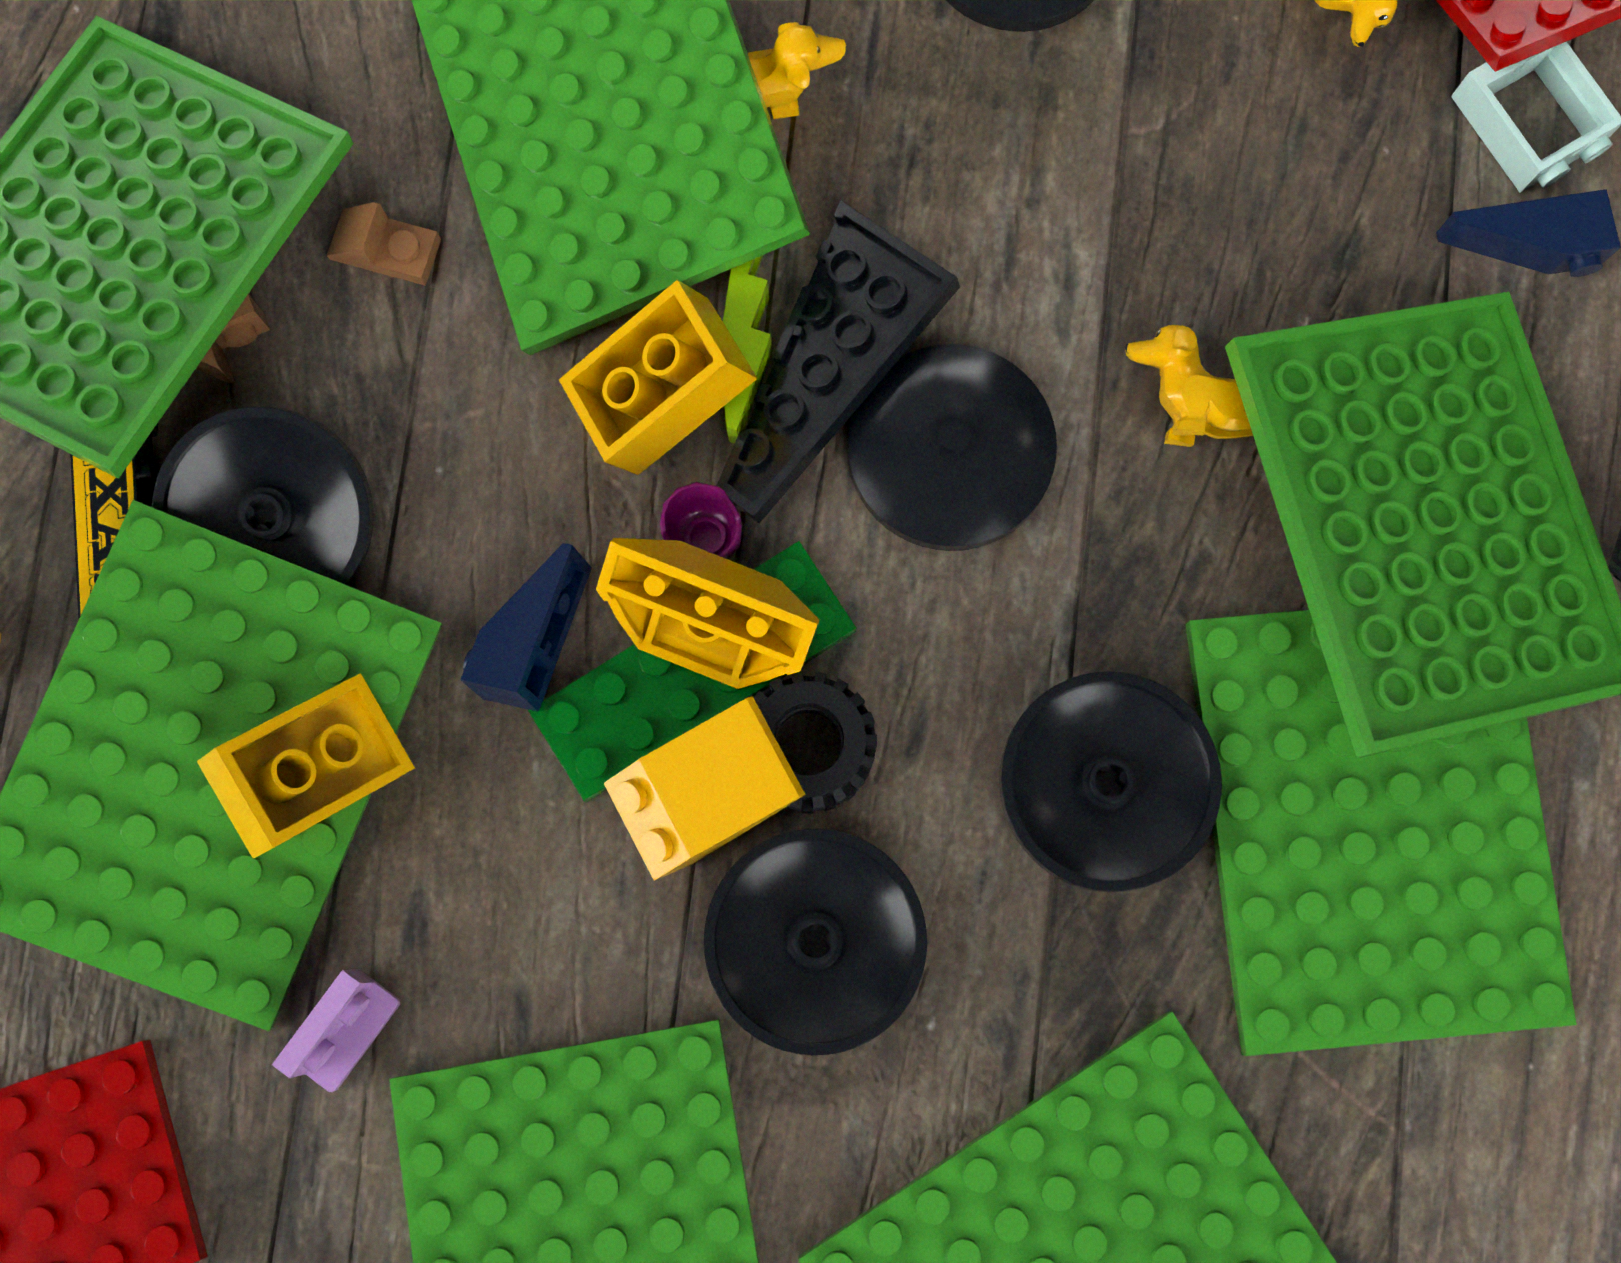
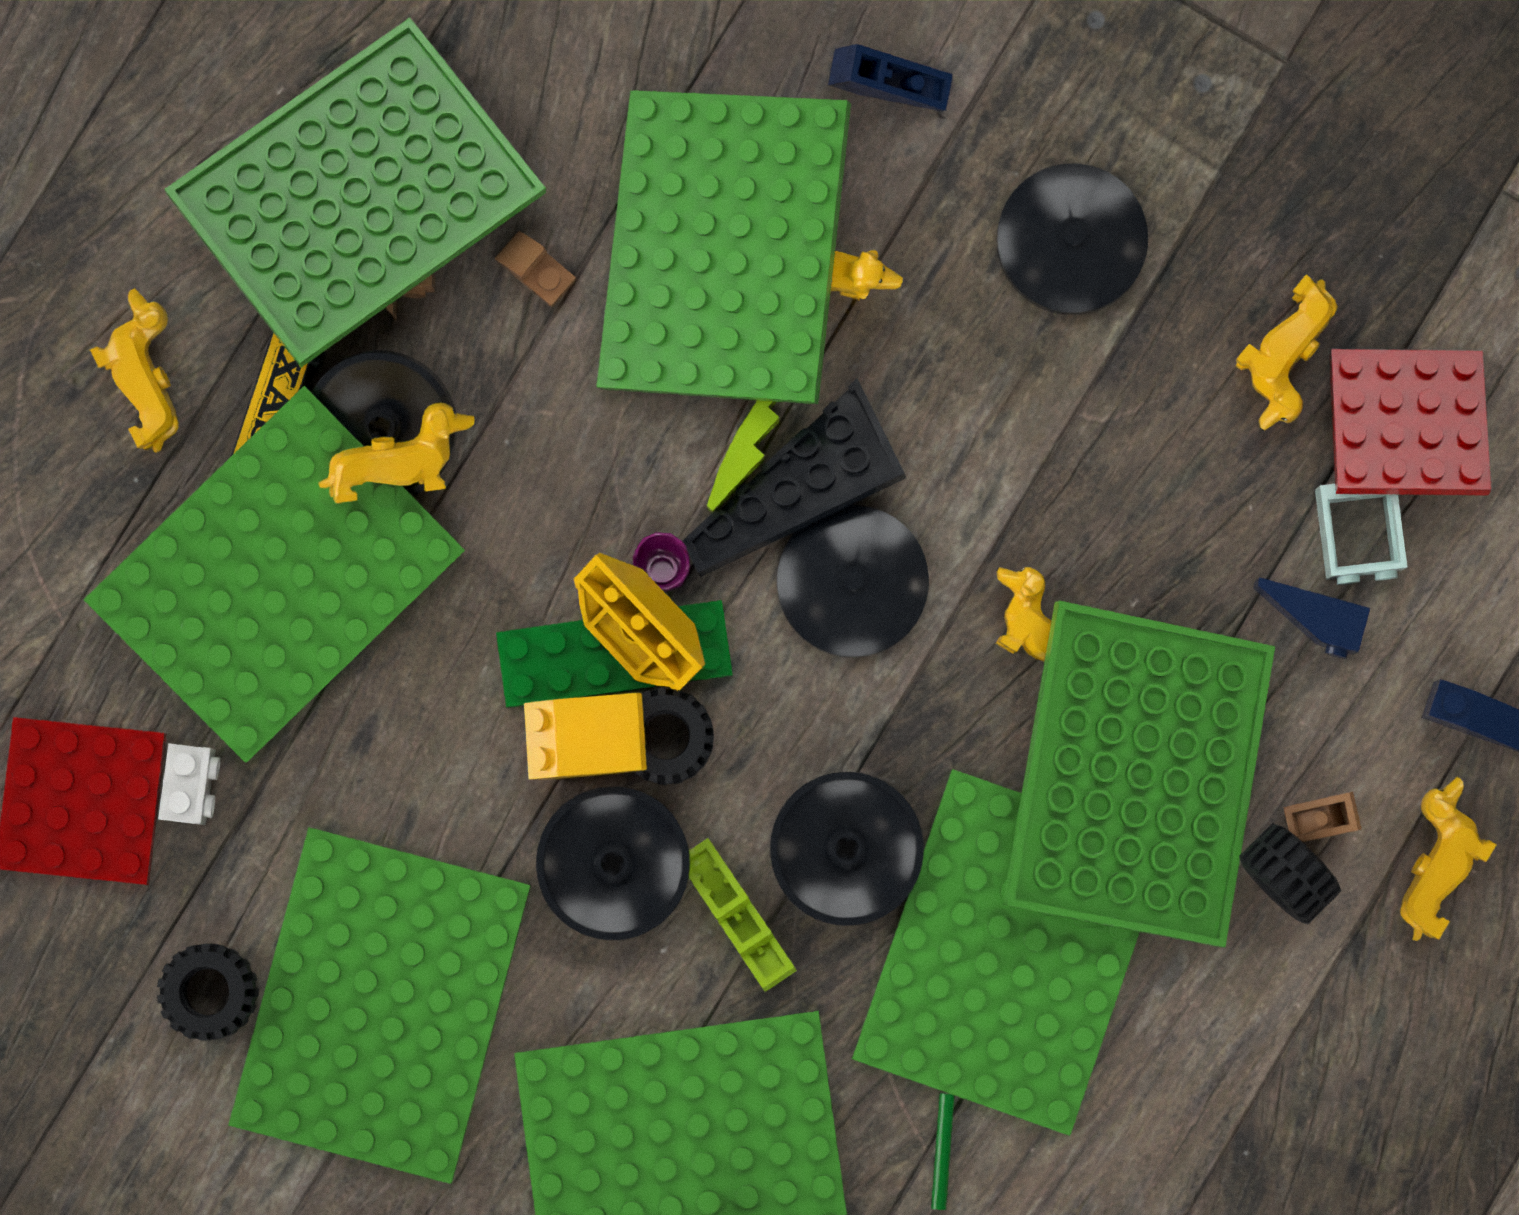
camera: 25 degrees right, 5 degrees up
(204, 1095) = (188, 784): none -> white bracket
(298, 543) = (401, 461): none -> yellow animal
(305, 765) = (342, 608): yellow slope -> none
(338, 1030) = (291, 783): lavender bracket -> none
(525, 637) = (515, 584): dark blue slope -> none
(657, 378) = (675, 454): yellow brick -> none
(1010, 936) = (738, 916): none -> lime slope
(1422, 1125) = (942, 1151): none -> green bar

